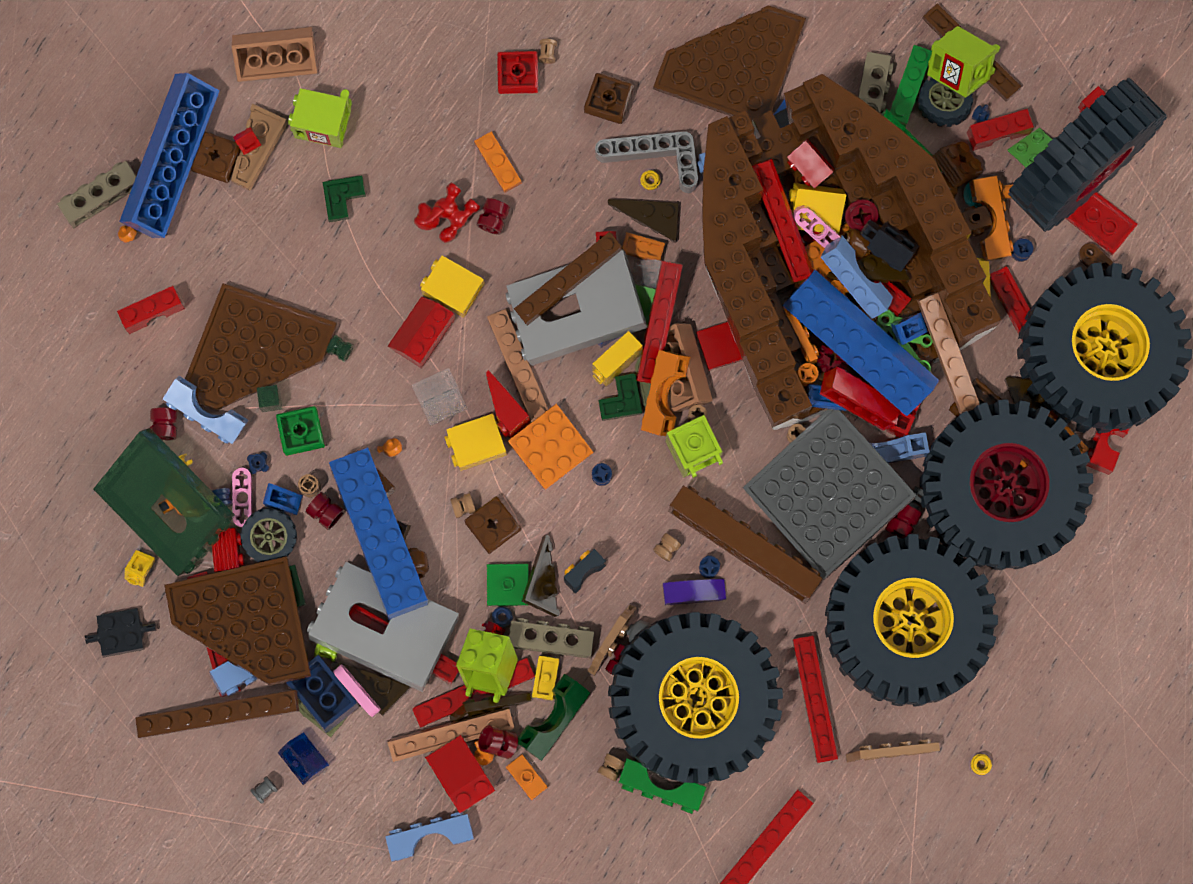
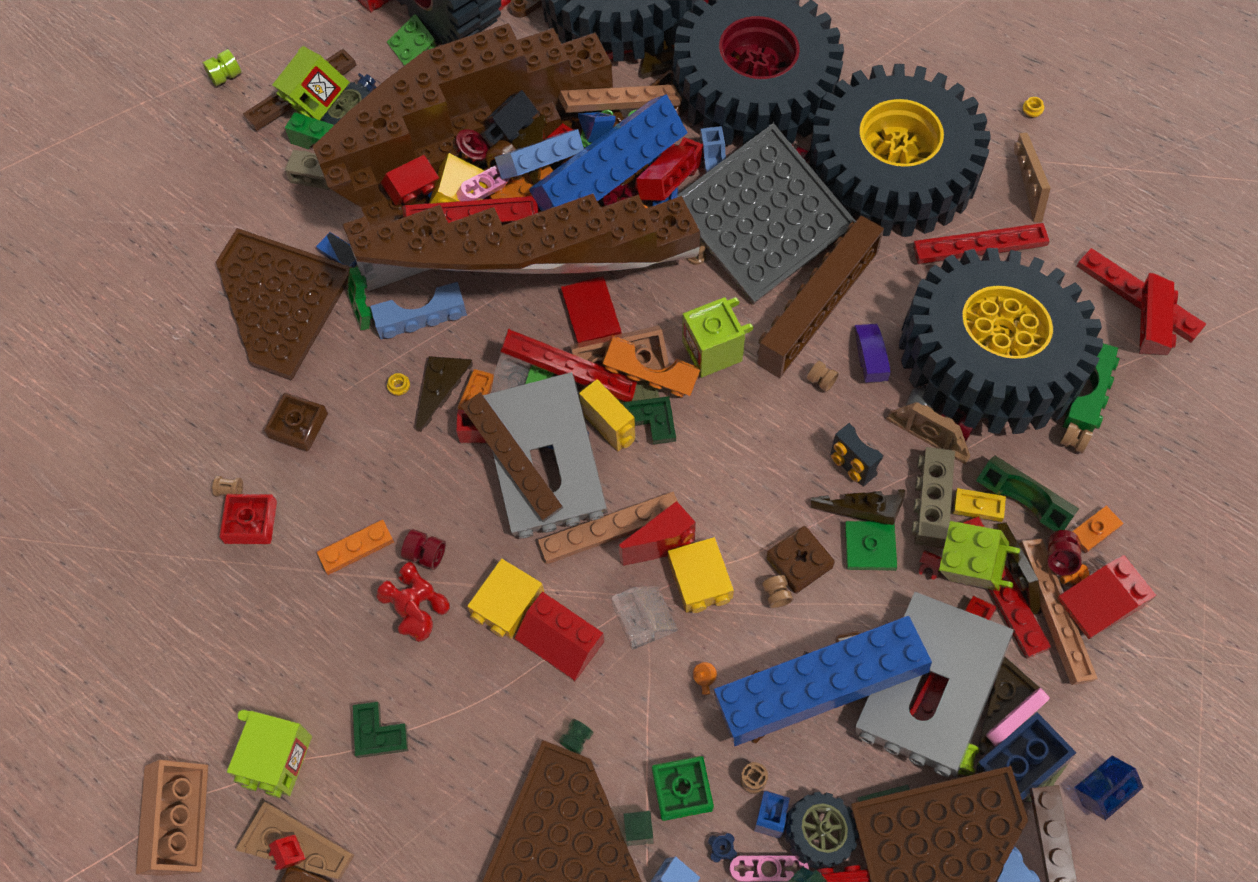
camera: 85 degrees left, 15 degrees down
(264, 789) = (1152, 842): dark grey bush -> none
(322, 508) = (789, 754): dark red wheel -> none
(402, 844) = (1194, 667): medium blue arch -> none
(502, 610) = (912, 546): dark blue plate -> none
(550, 446) = (707, 492): orange plate -> none
(604, 472) = (742, 436): dark blue wheel -> none
(654, 151) = (363, 376): light grey beam -> none
(696, 408) = (670, 336): medium nougat bush -> none
(709, 563) = (847, 333): dark blue wheel -> none
(730, 849) = (1157, 316): none -> red slope
(1010, 125) = (382, 57): red arch -> none

